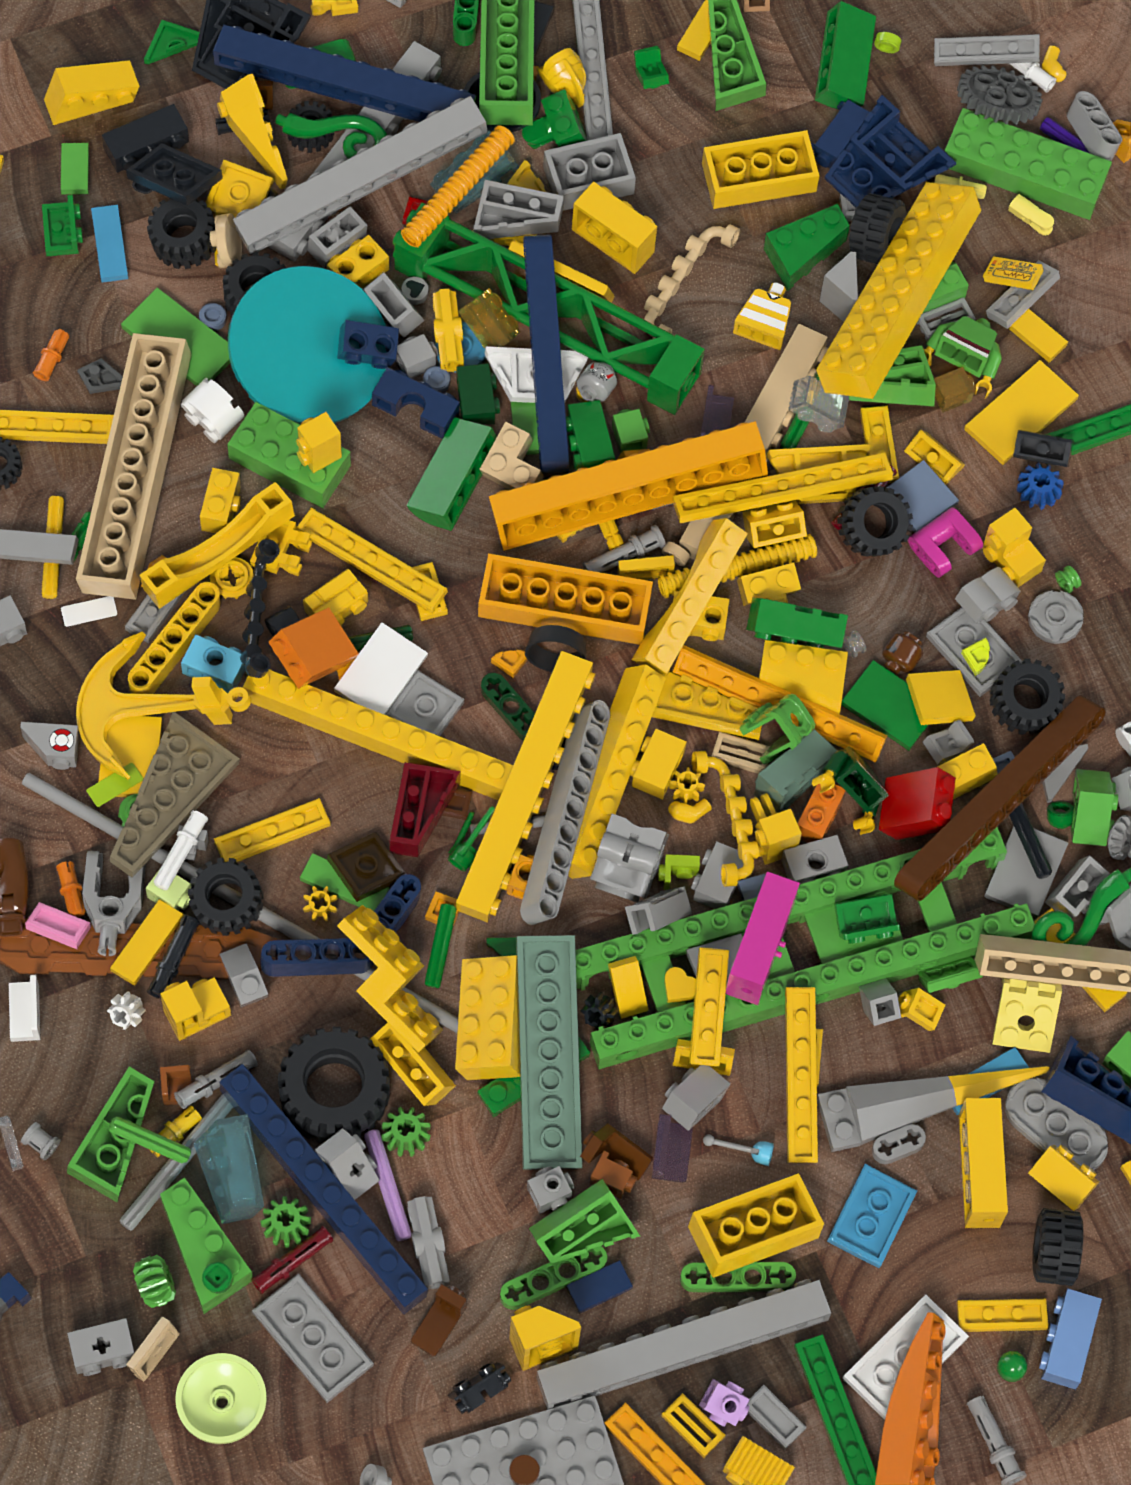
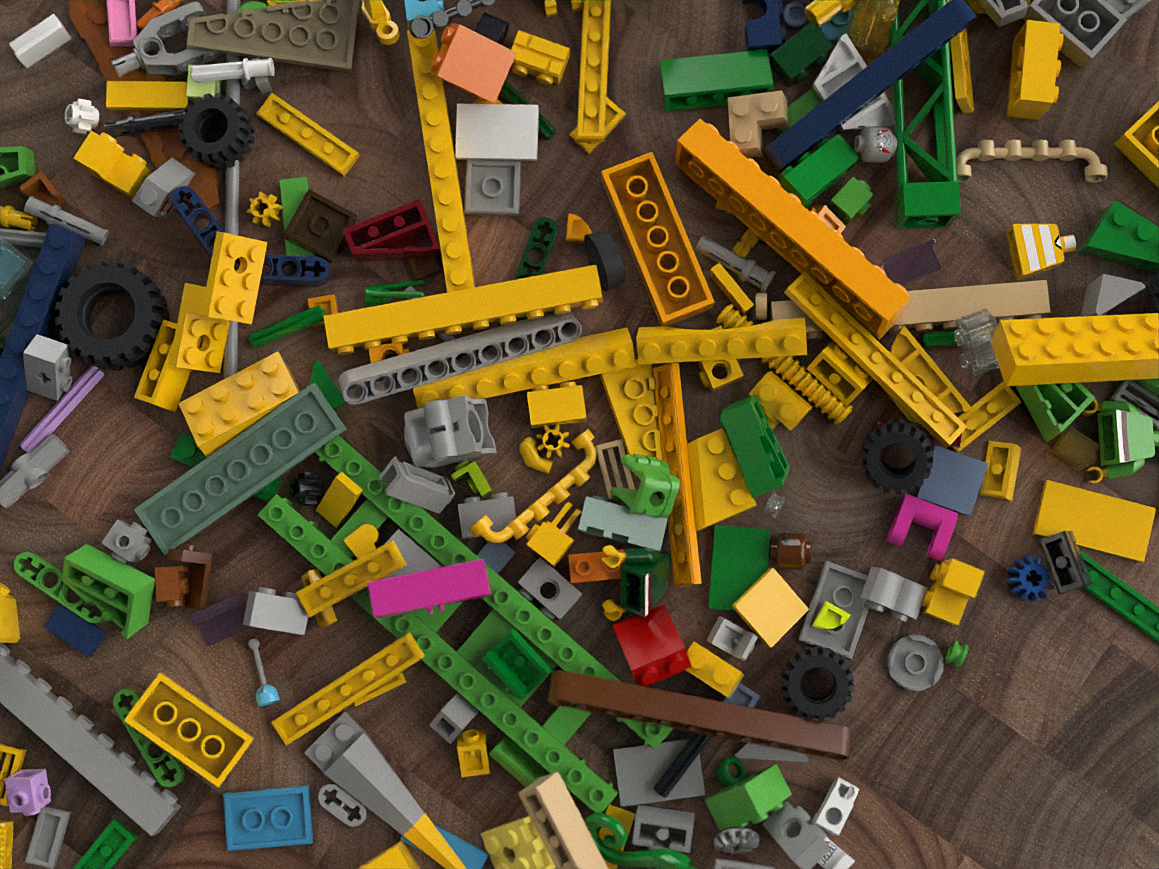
camera: 65 degrees right, 15 degrees up
(413, 1139) = (103, 390): bright green gear -> none

